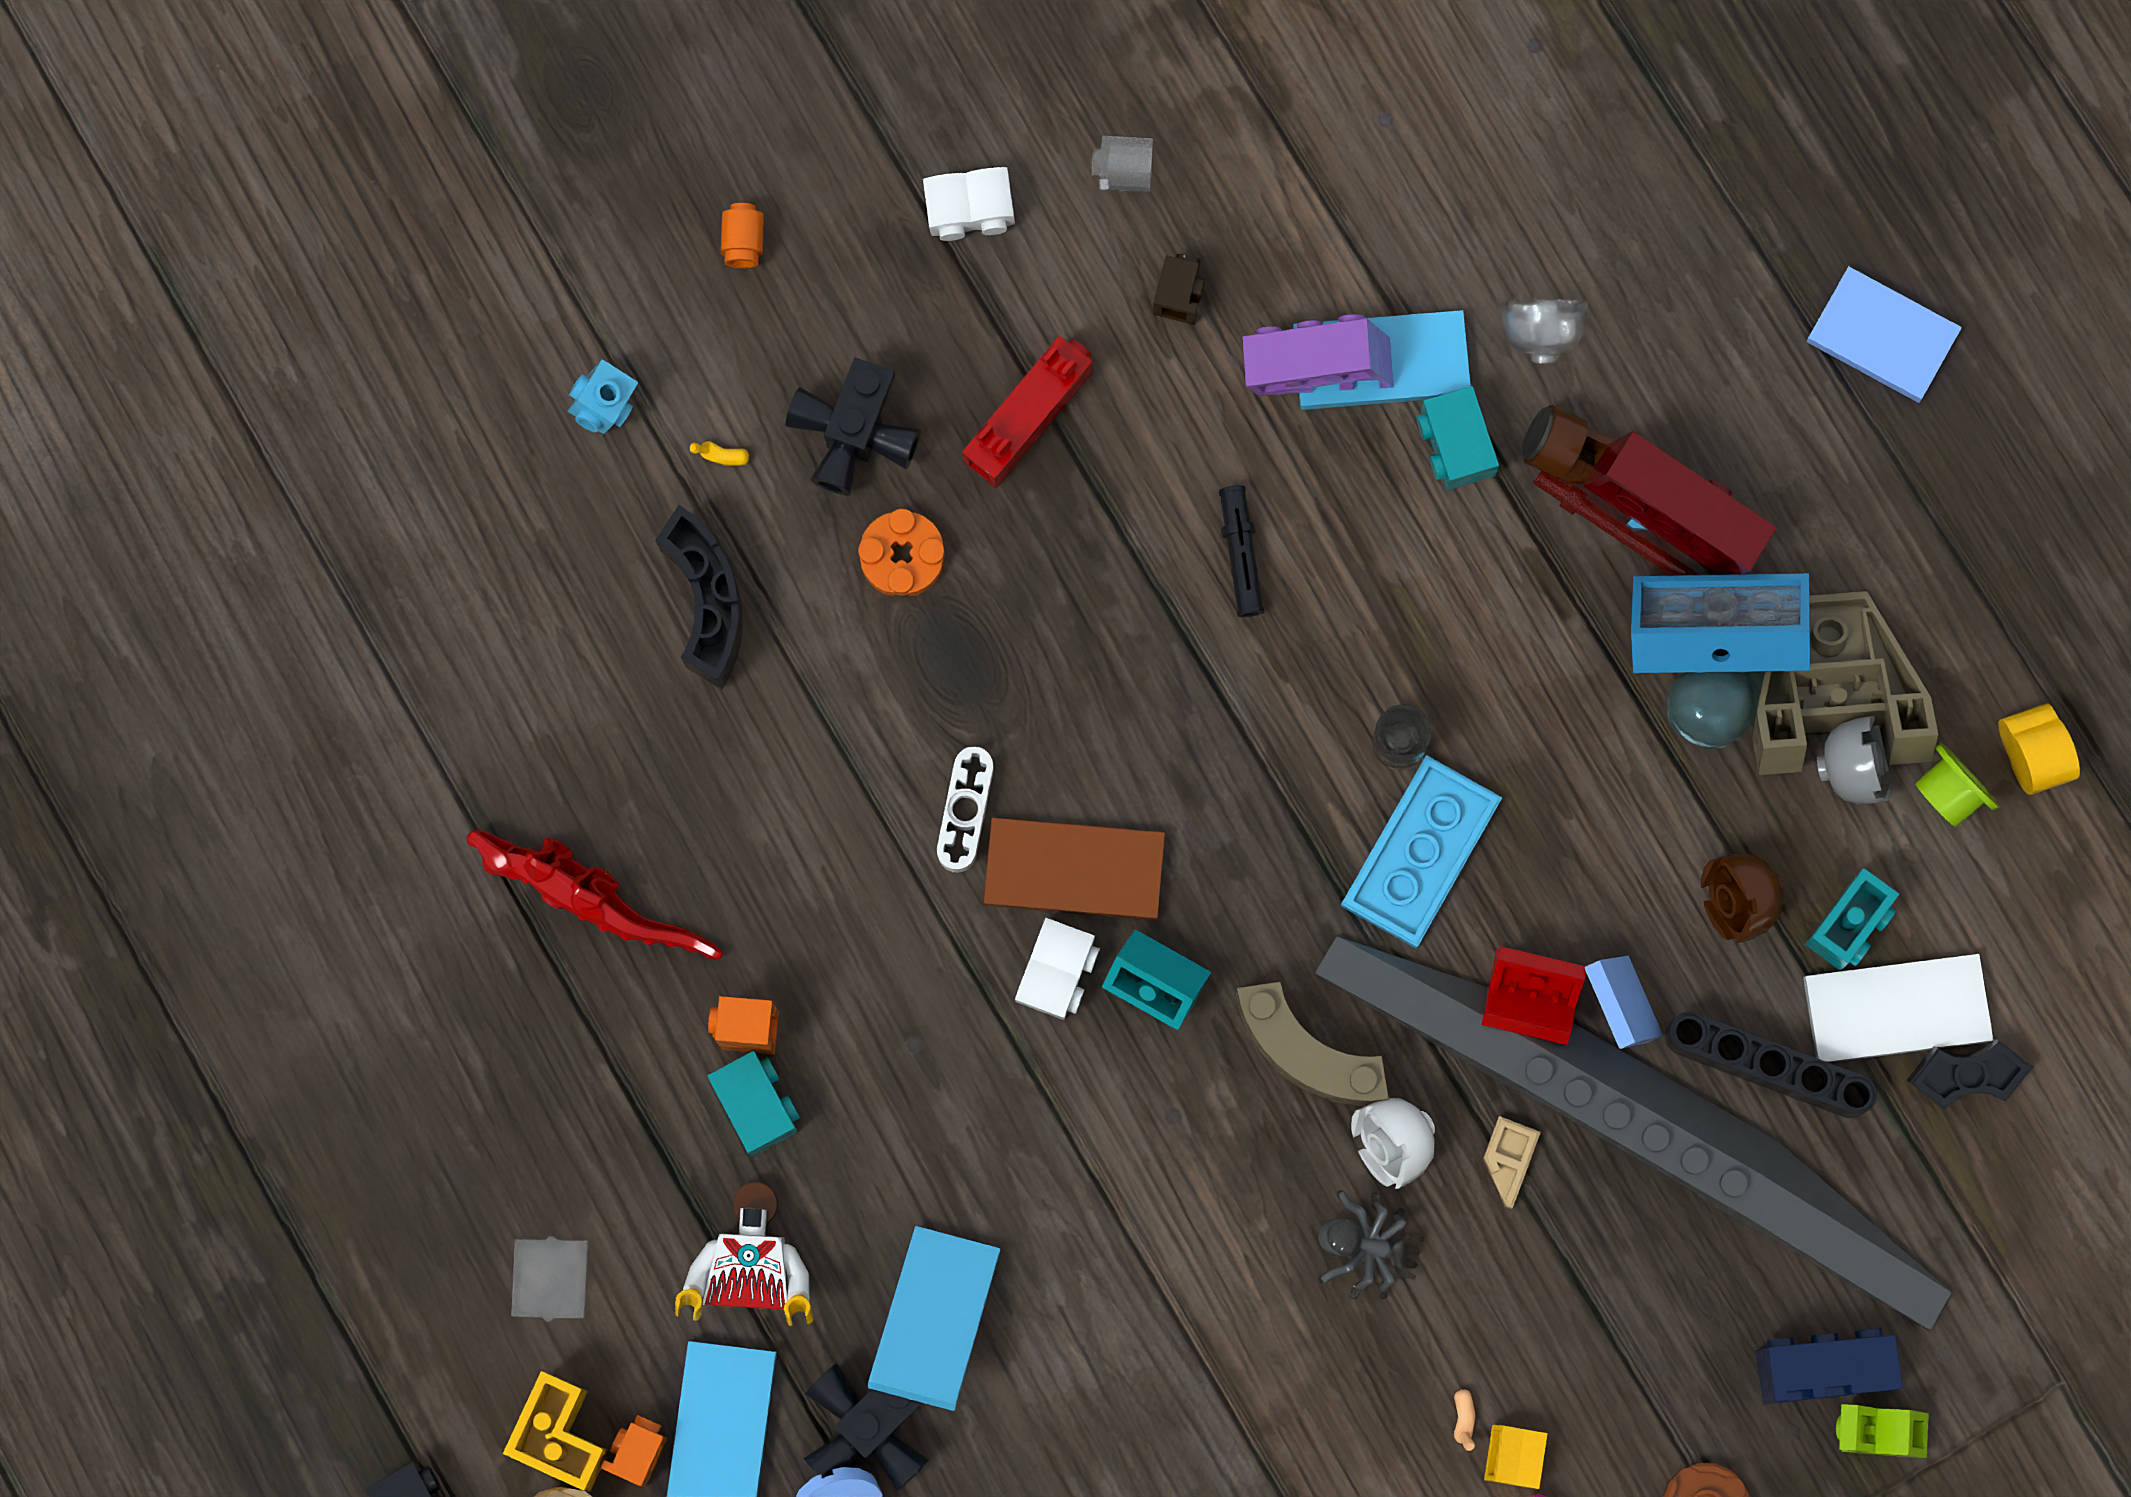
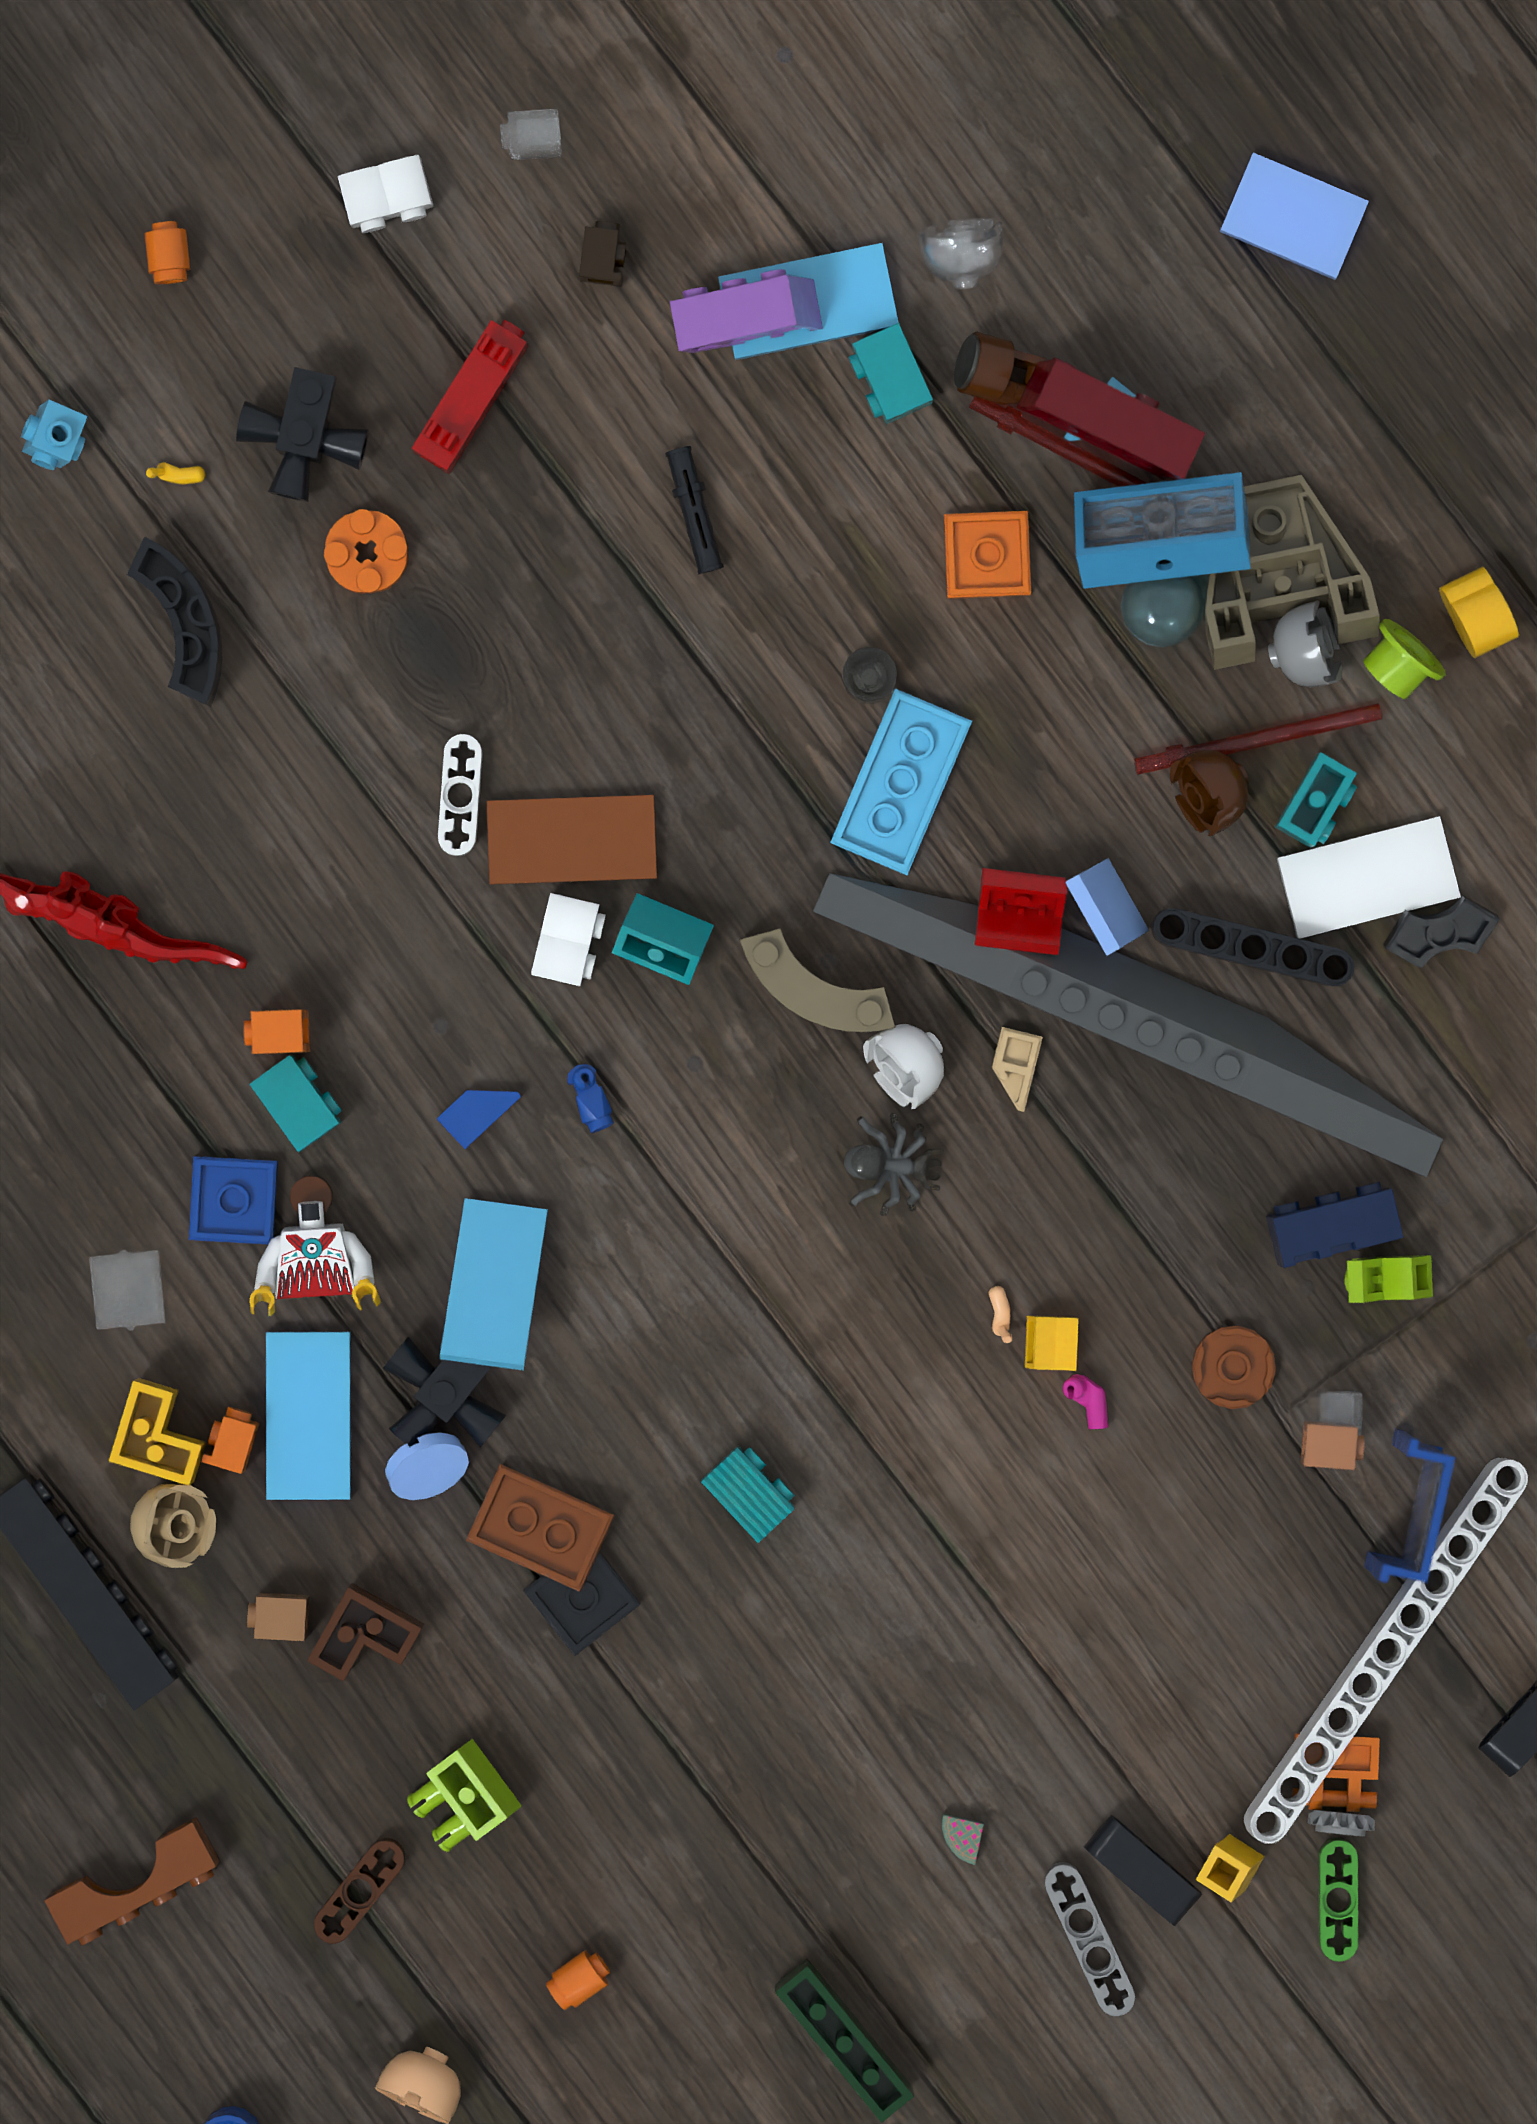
camera: 10 degrees left, 10 degrees up
(673, 1198) = (233, 1200): none -> blue tile
(938, 1138) = (475, 1113): none -> blue tile
(1060, 1137) = (590, 1098): none -> blue arm
(1536, 632) = (987, 554): none -> orange tile
(1803, 851) = (1262, 737): none -> clear red bar

